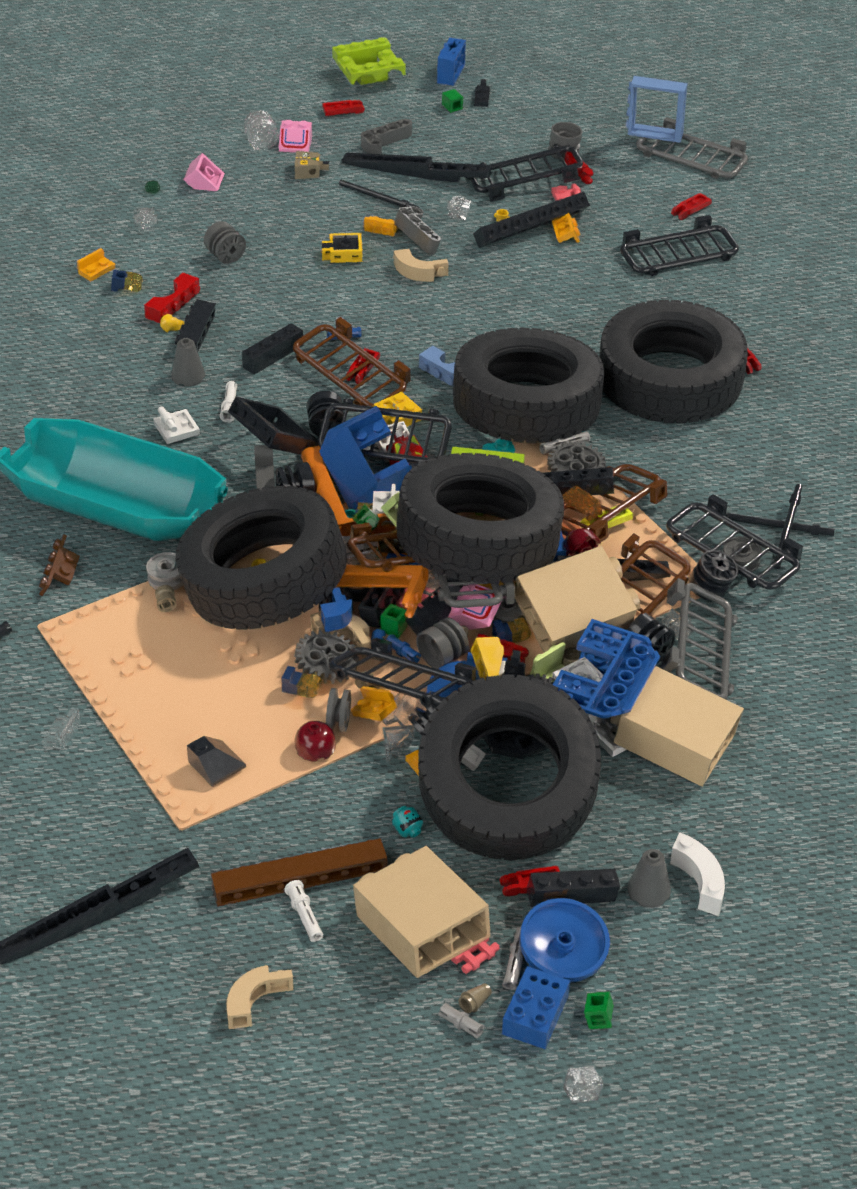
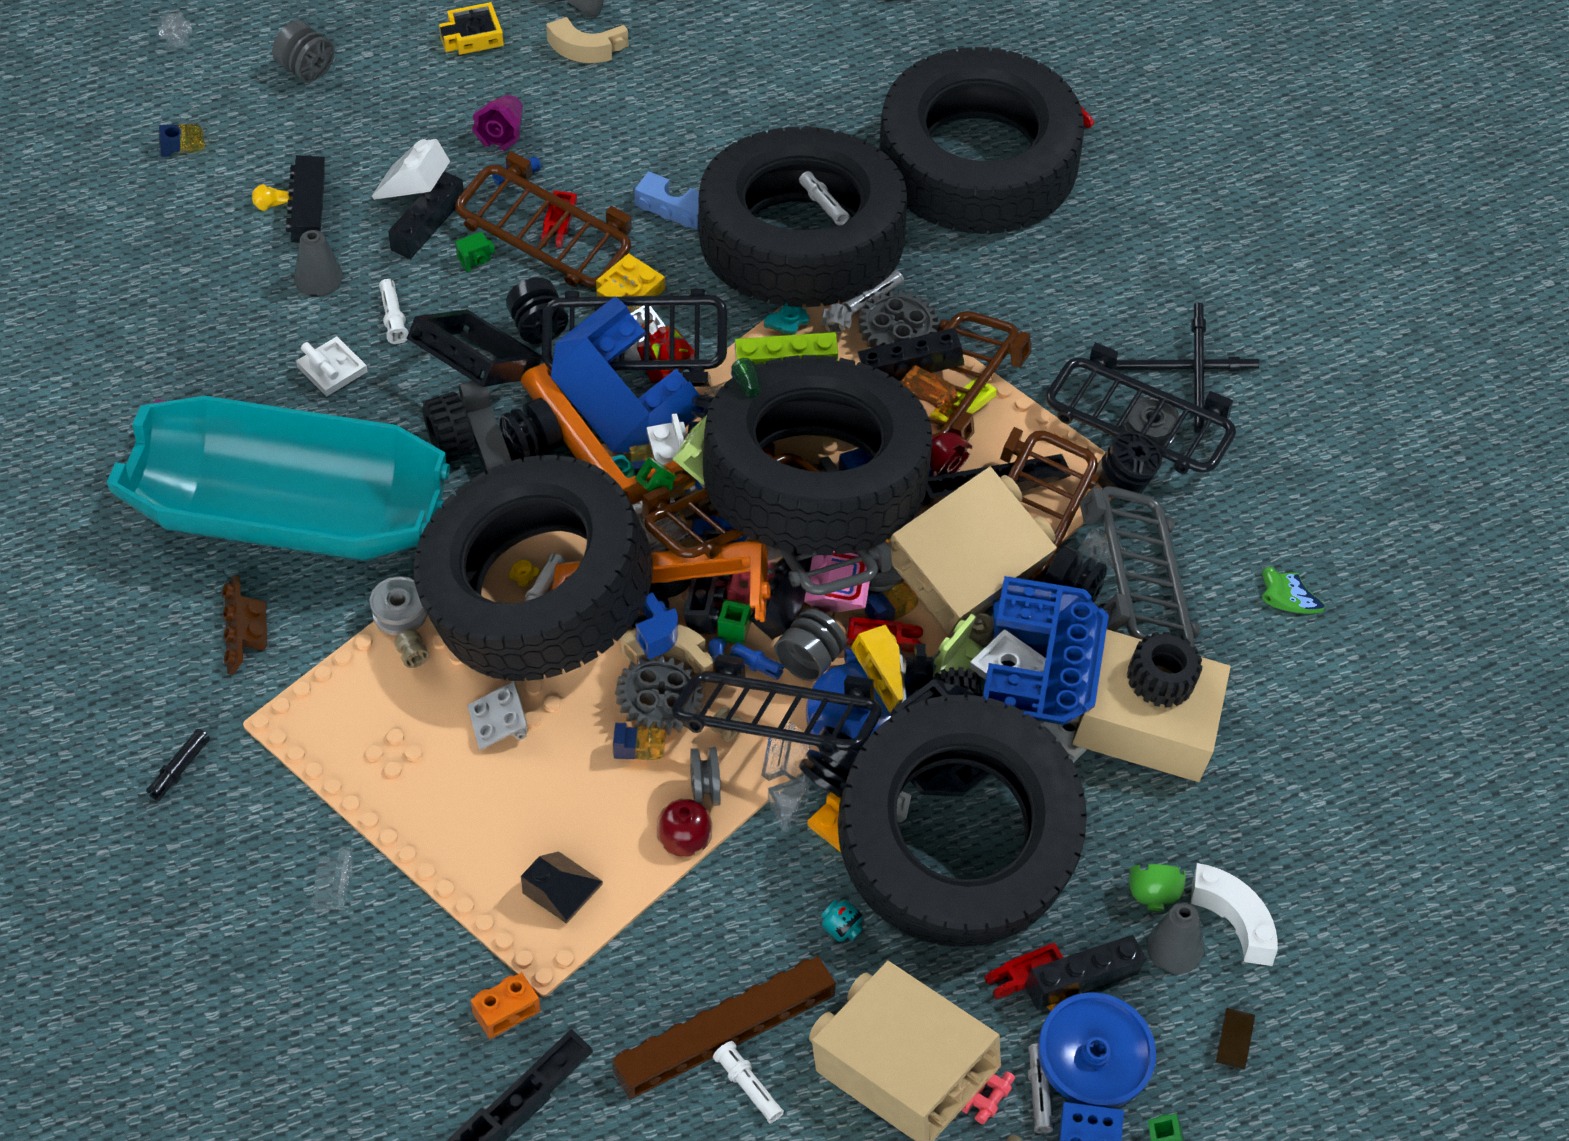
camera: 15 degrees left, 10 degrees up
(94, 265) = (125, 120): light orange bracket -> none
(150, 827) = (505, 1005): none -> orange brick
(185, 288) = (245, 175): red arch -> none
(210, 649) = (498, 716): none -> light grey hinge
(239, 470) = (449, 425): none -> black tyre
(272, 319) = (415, 171): none -> white slope
(297, 374) = (474, 250): none -> green brick
(341, 301) = (499, 122): none -> magenta cone
(375, 704) = (748, 756): light orange bracket -> none
(440, 454) = (746, 376): none -> clear green cone
(533, 452) = (836, 318): none -> light grey gear
(538, 365) = (818, 192): none -> light grey pin
(644, 838) = (1157, 885): none -> bright green cylinder
(673, 955) = (1235, 1038): none -> dark brown slope
(689, 696) = (1170, 653): none -> black tyre
(810, 679) = (1289, 593): none -> bright green arm

